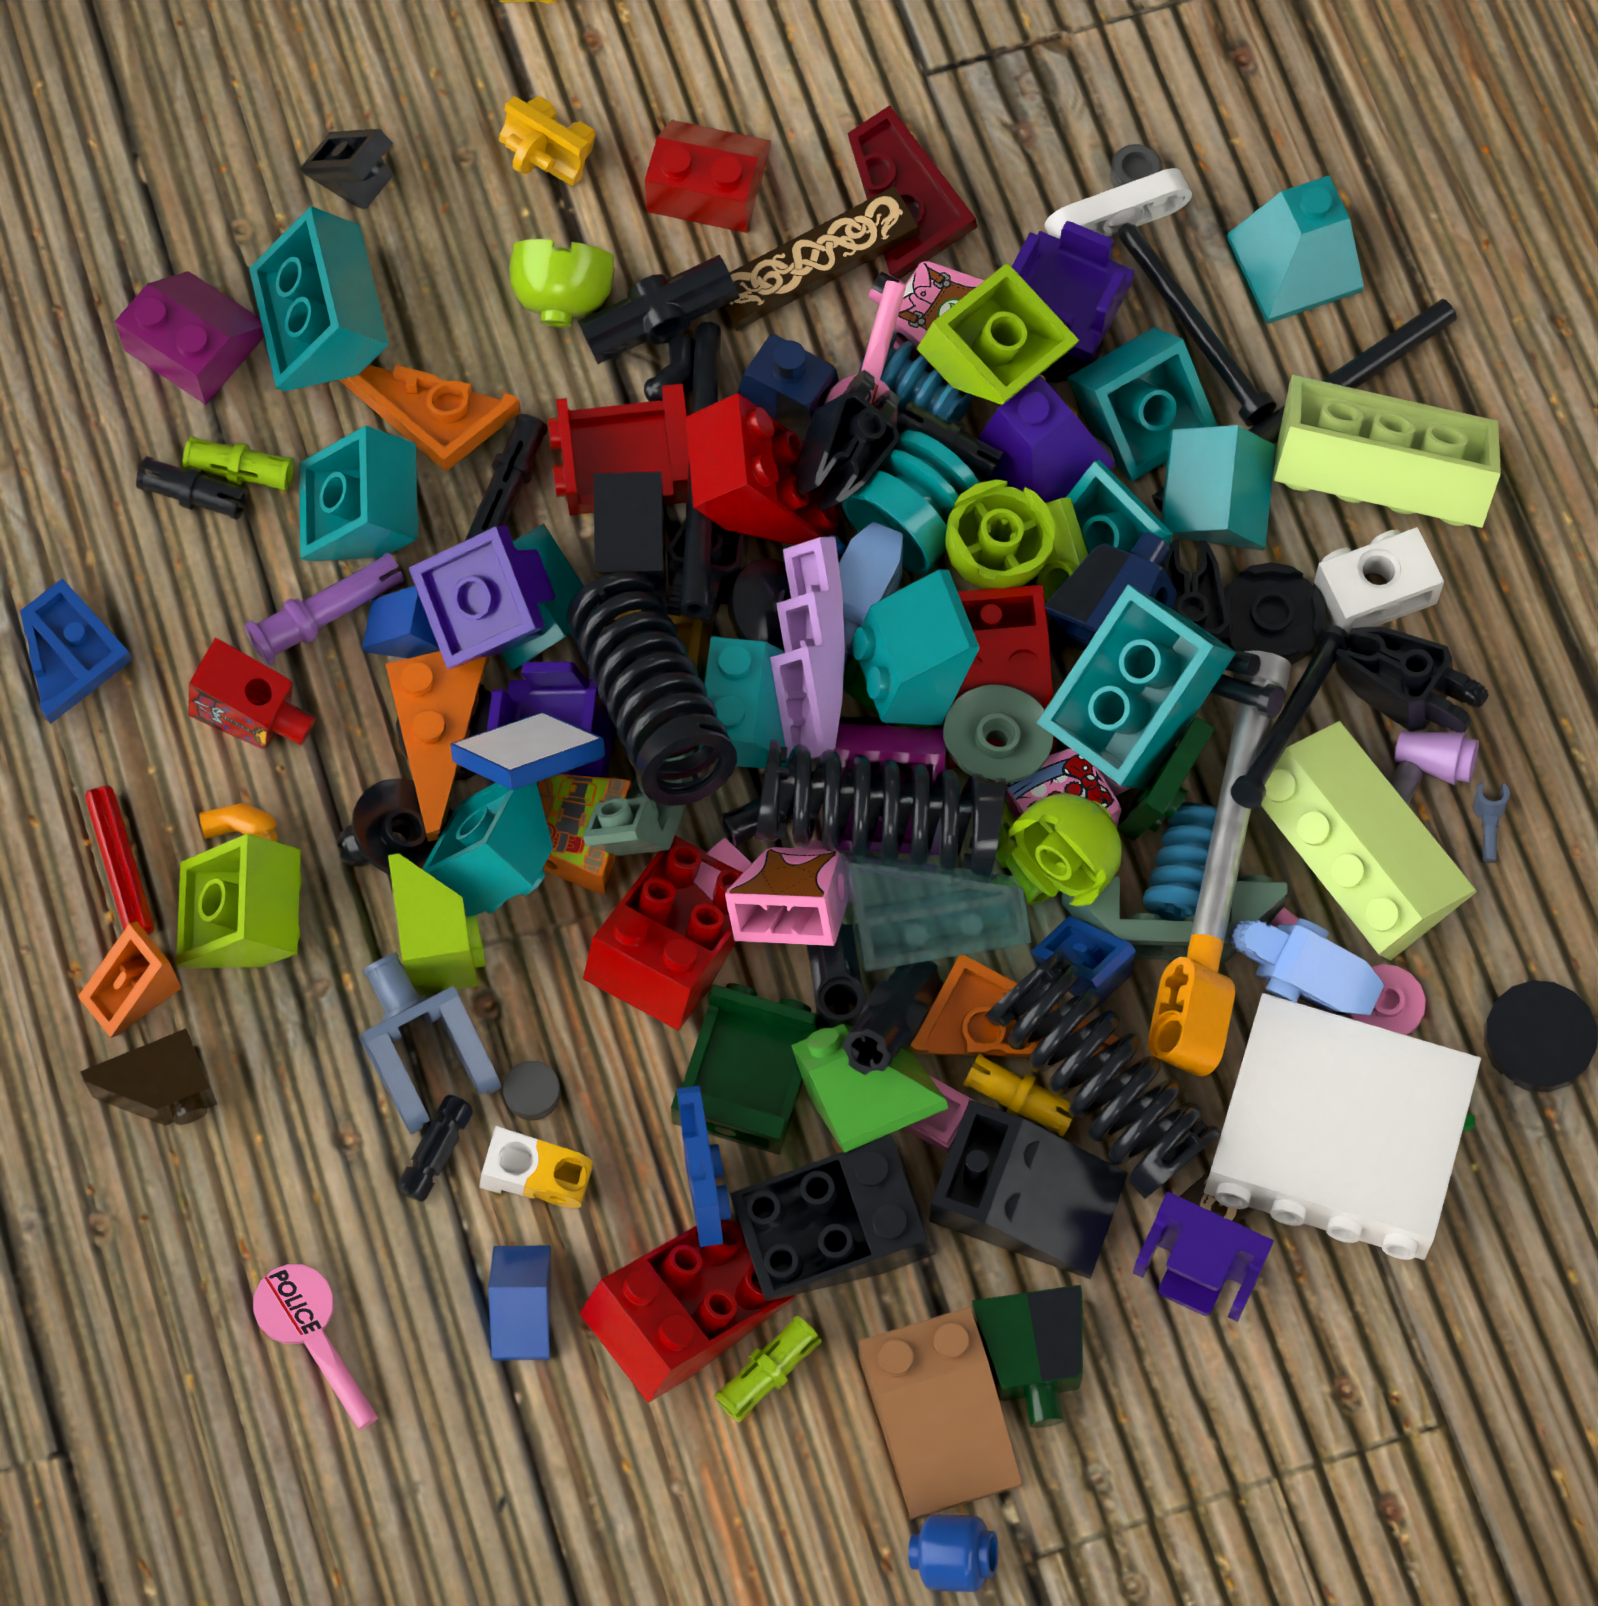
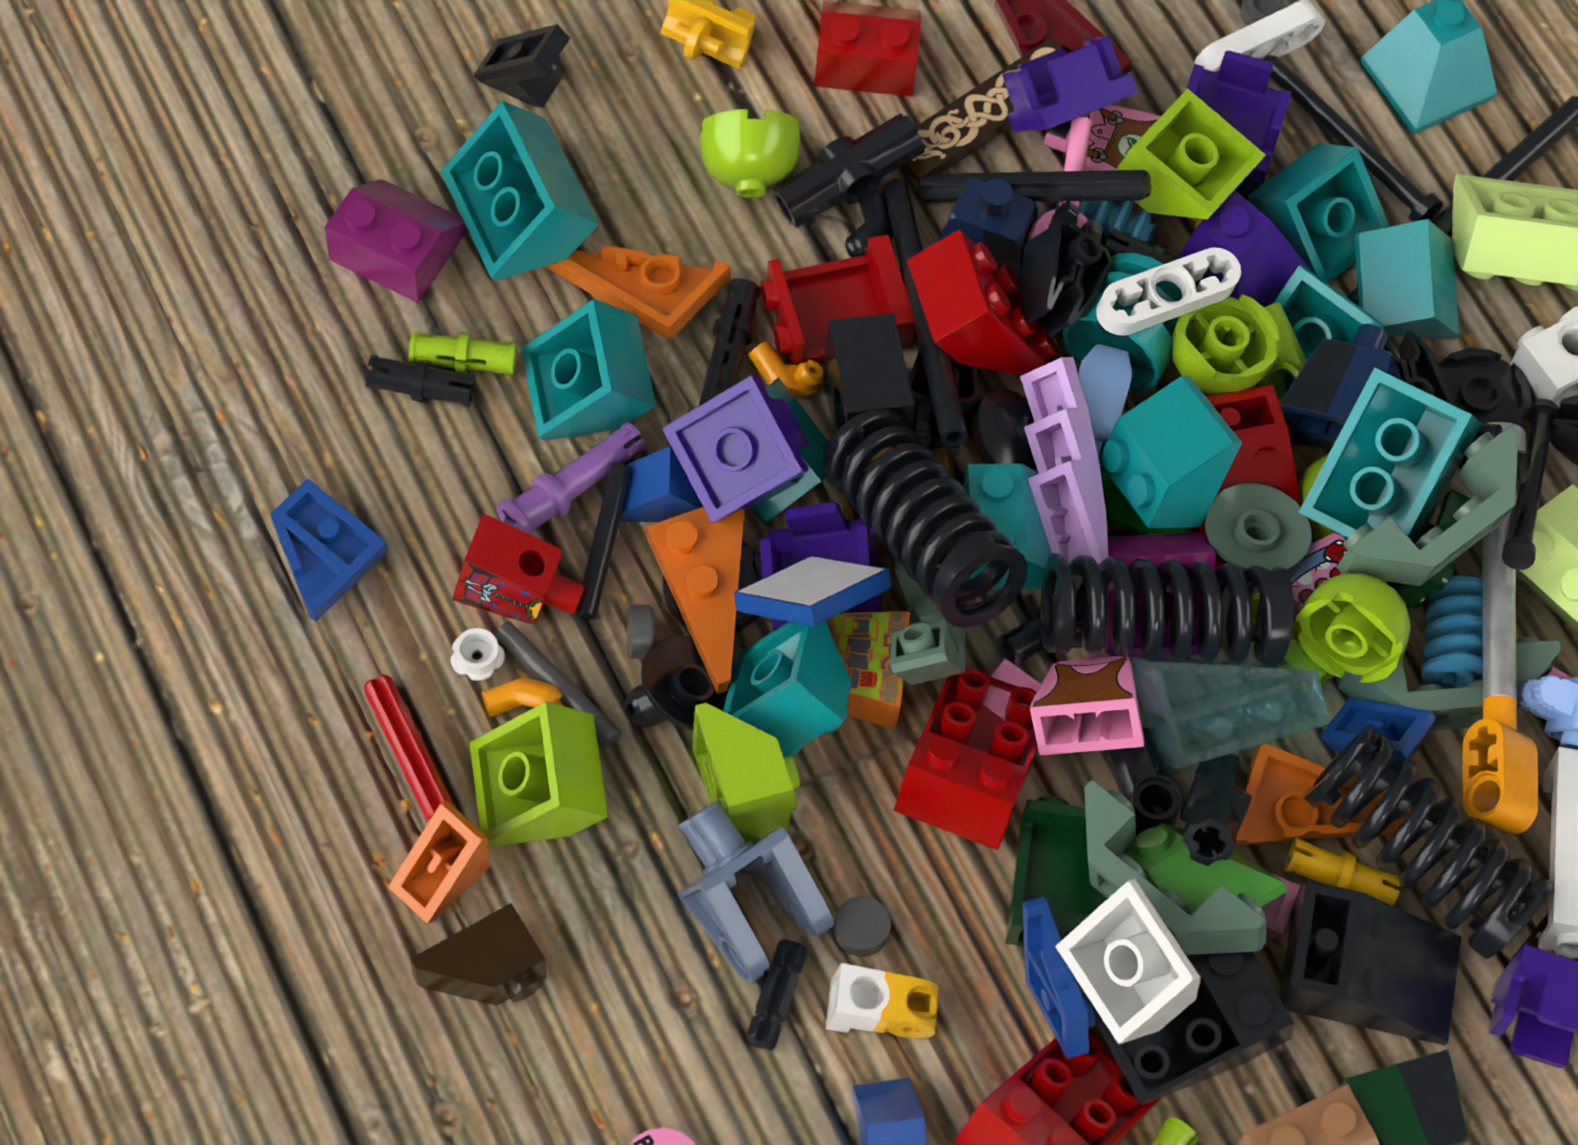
camera: 15 degrees left, 5 degrees down
(201, 761) = (477, 641): none -> white plate
(269, 802) = (547, 672): none -> dark grey bar
(344, 672) = (603, 540): none -> black bar
(363, 768) = (639, 630): none -> dark grey tile
(561, 522) = (799, 379): none -> light orange arm
(761, 1167) = (1130, 965): none -> white slope
(846, 349) = (1046, 186): none -> black axle
(860, 1133) = (1218, 926): none -> sand green slope
(889, 245) = (1066, 85): none -> dark purple panel
(985, 480) = (1157, 310): none -> white beam
(1106, 781) = (1394, 558): none -> sand green slope

